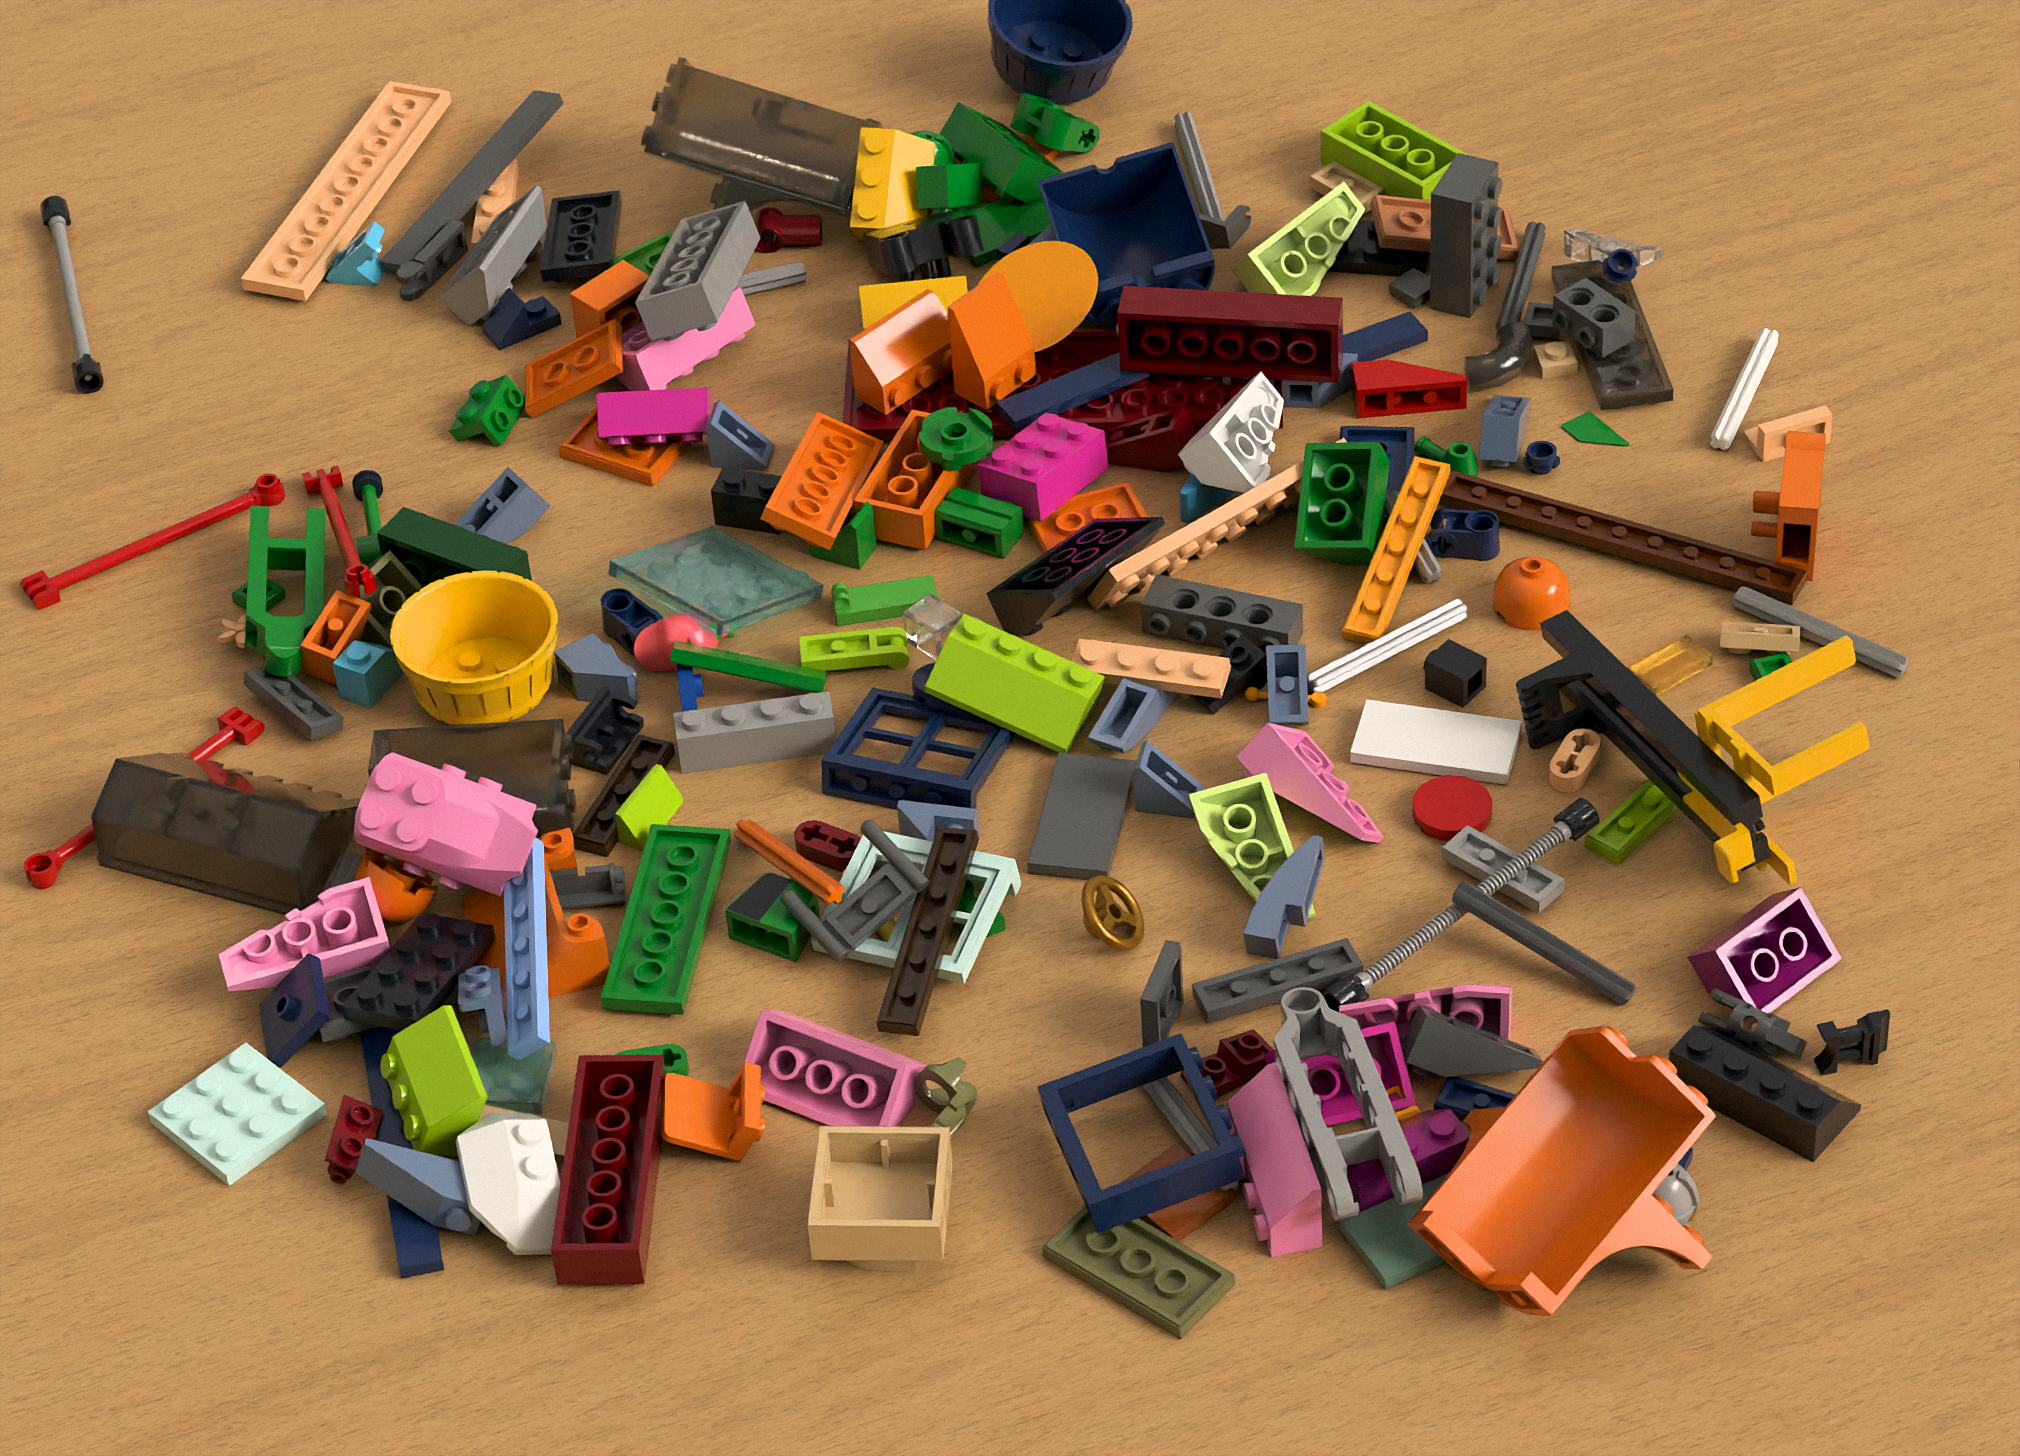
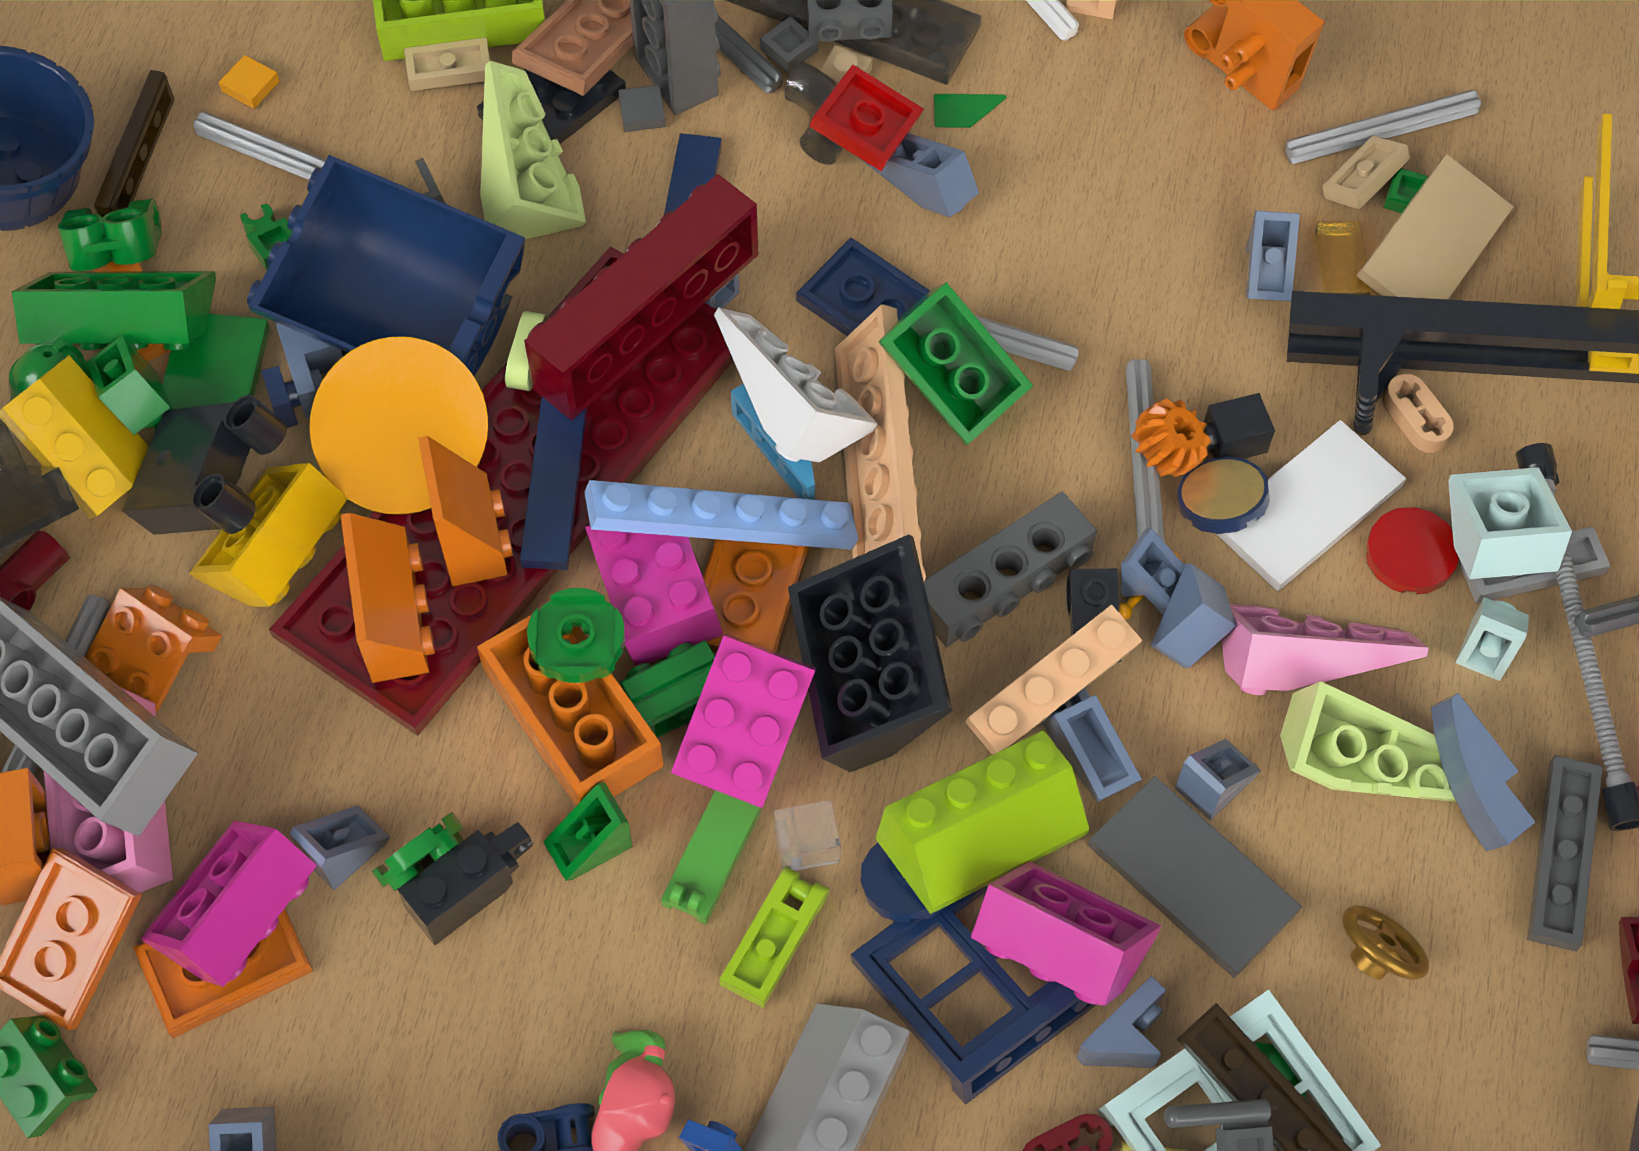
camera: 60 degrees left, 20 degrees up
(715, 580) = (568, 1012): clear light blue plate -> none
(748, 667) = (740, 1065): green tile -> none
(752, 457) = (406, 861): none -> green plate
(794, 291) = (148, 641): none -> orange bracket
(822, 481) = (515, 805): orange plate -> none
(965, 746) = (1064, 932): none -> dark pink slope
(976, 542) = (743, 720): none -> dark pink brick
(1106, 452) = (719, 515): none -> light blue plate
(1134, 100) = (136, 145): none -> dark brown tile
(1150, 441) = (696, 453): dark red slope -> none
(1162, 995) = (1561, 979): dark grey tile -> none
(1238, 120) = (249, 81): none -> light orange tile
(1280, 707) = (1194, 618): none -> sand blue slope
(1389, 639) = (1171, 438): none -> orange gear
(1394, 688) = (1223, 494): none -> pearl gold tile
(1396, 550) = (1054, 385): light orange tile -> none
(1404, 388) = (794, 207): red slope -> none
(1412, 862) = (1493, 638): none -> light aqua slope
(1458, 455) = (925, 243): green bar -> none
(1467, 534) = (1037, 301): dark blue piece -> none
(1498, 813) = (1506, 523): none -> light aqua slope
(1505, 370) = (866, 117): none -> red plate
(1531, 592) = (1167, 300): orange cylinder -> none
(1541, 457) = (986, 163): dark blue plate -> none
(1624, 537) = (1139, 186): reddish brown plate -> none
(1626, 611) = (1272, 255): none -> sand blue slope
(1631, 823) = (1528, 415): lime tile -> none
(1696, 684) = (1436, 235): none -> tan tile

